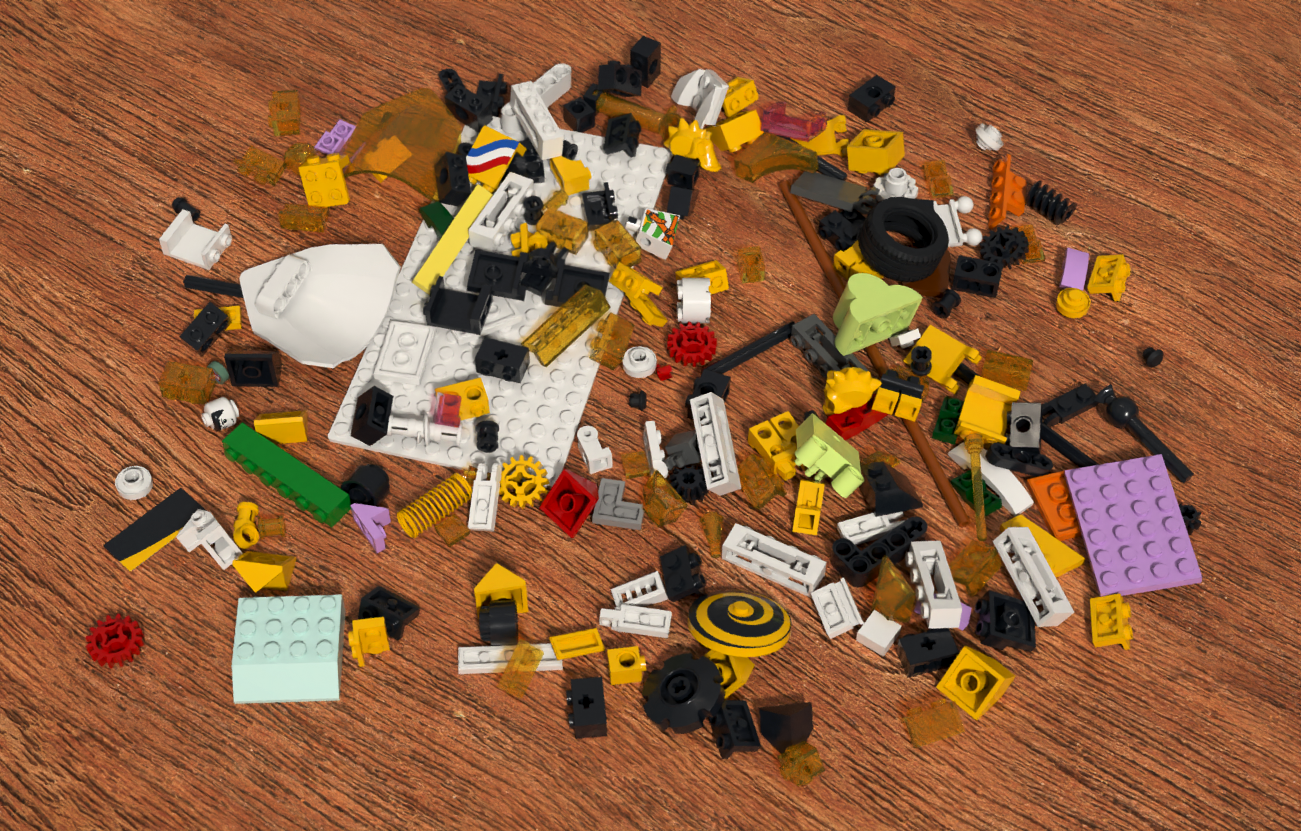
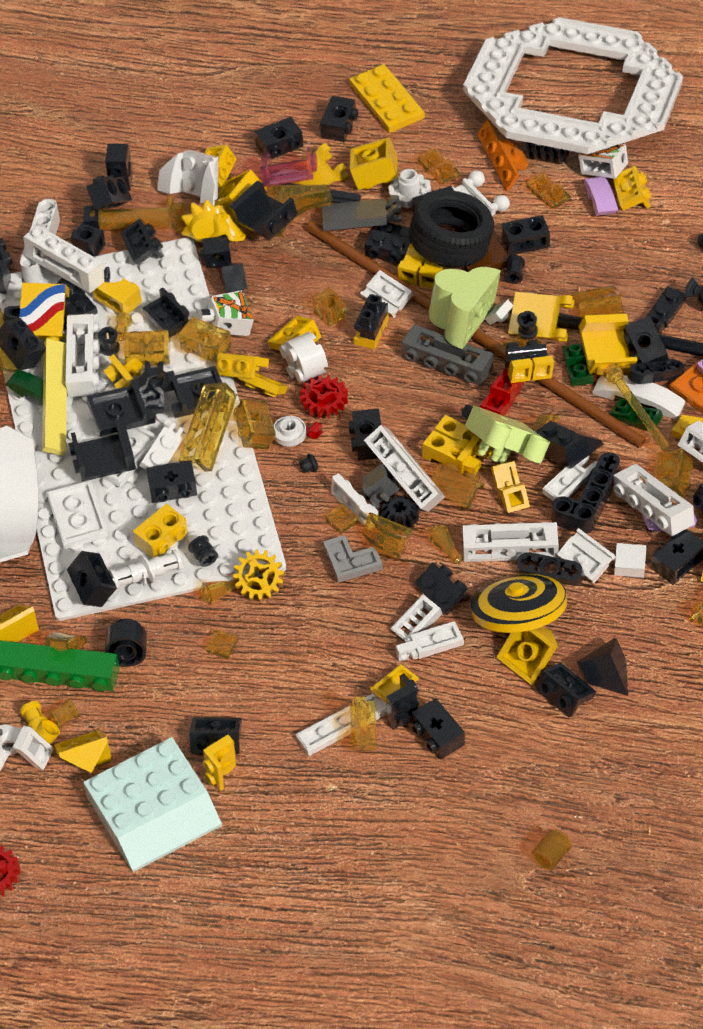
camera: 25 degrees left, 0 degrees up
(312, 459) = (64, 641): none -> clear yellow slope
(370, 521) = (148, 670): lavender slope -> none
(401, 515) = (187, 647): yellow piece -> none
(447, 410) = (157, 543): clear pink panel -> none
(485, 498) = (237, 604): white hinge -> none
(499, 622) = (321, 696): black piece -> none
(501, 585) = (308, 672): yellow slope -> none
(516, 326) = (163, 447): none -> white hinge
(567, 666) = (402, 703): none -> black bracket
(570, 501) = (311, 573): red slope -> none
(594, 456) = (298, 523): white leg -> none
(628, 655) = (445, 690): yellow brick -> none
(683, 693) = (509, 679): black piece -> none
(741, 151) = (262, 213): none -> black panel
(752, 349) = (376, 379): black axle -> none
(778, 295) = (371, 322): none -> black hips
(798, 614) = (543, 560): none -> black beam
(800, 763) = (637, 688): clear yellow brick -> none
(806, 94) = (279, 138): none -> black brick
(812, 275) = (390, 290): none -> white plate
(848, 389) = (485, 375): yellow head -> none
(893, 594) = (624, 521): clear yellow slope -> none
(930, 98) = (386, 98): none -> yellow plate
(988, 137) = (460, 112): white plate -> none
(1014, 242) = (533, 200): black gear -> none
(1073, 303) = (616, 224): yellow plate -> none
(1098, 237) = (605, 162): none -> white torso
(1160, 211) = (645, 113): none -> white plate

